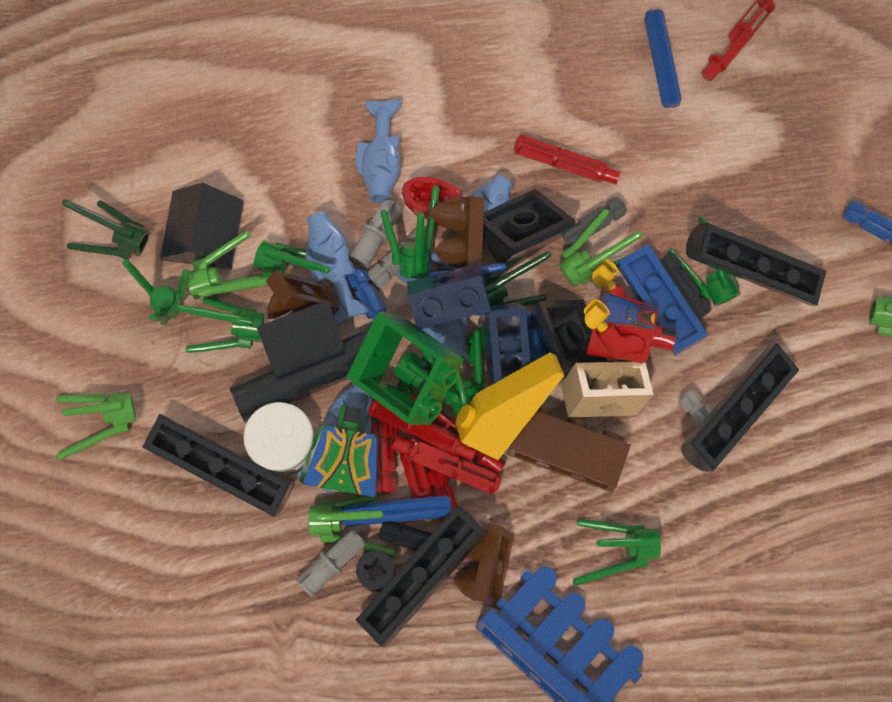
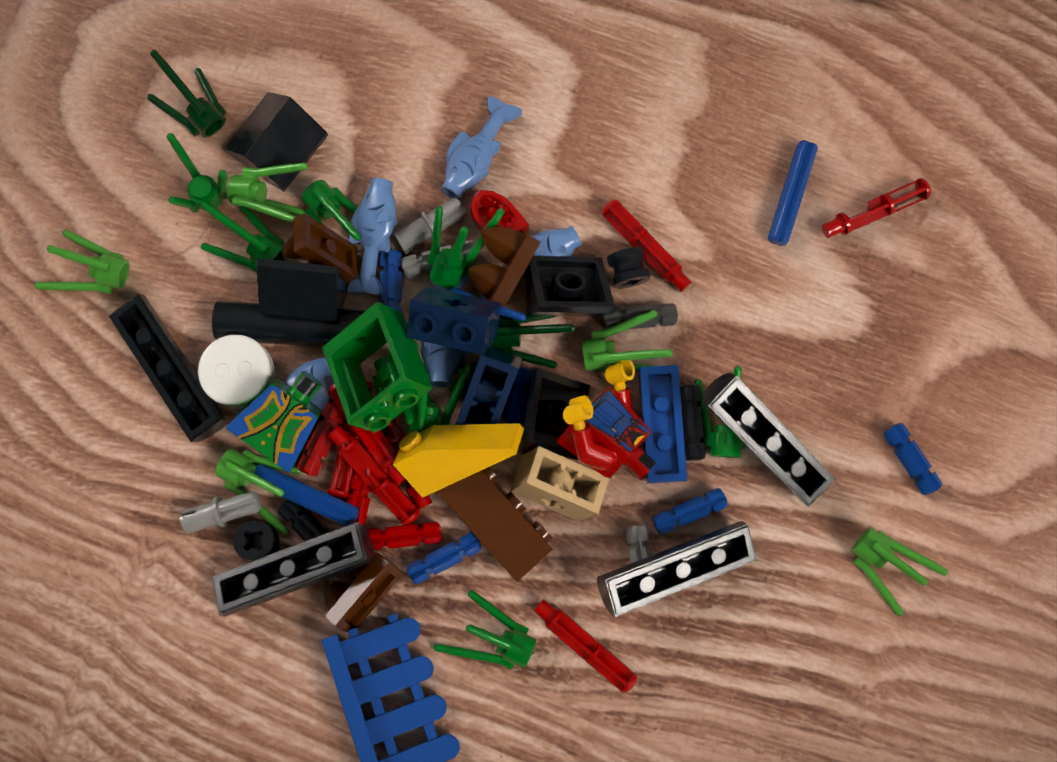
camera: 25 degrees right, 5 degrees up
(501, 500) = (405, 535): none -> red axle
(541, 503) = (443, 558): none -> blue axle
(563, 185) = (628, 267): none -> black wheel
(700, 514) = (587, 646): none -> red piece
(723, 359) = (690, 511): none -> blue axle

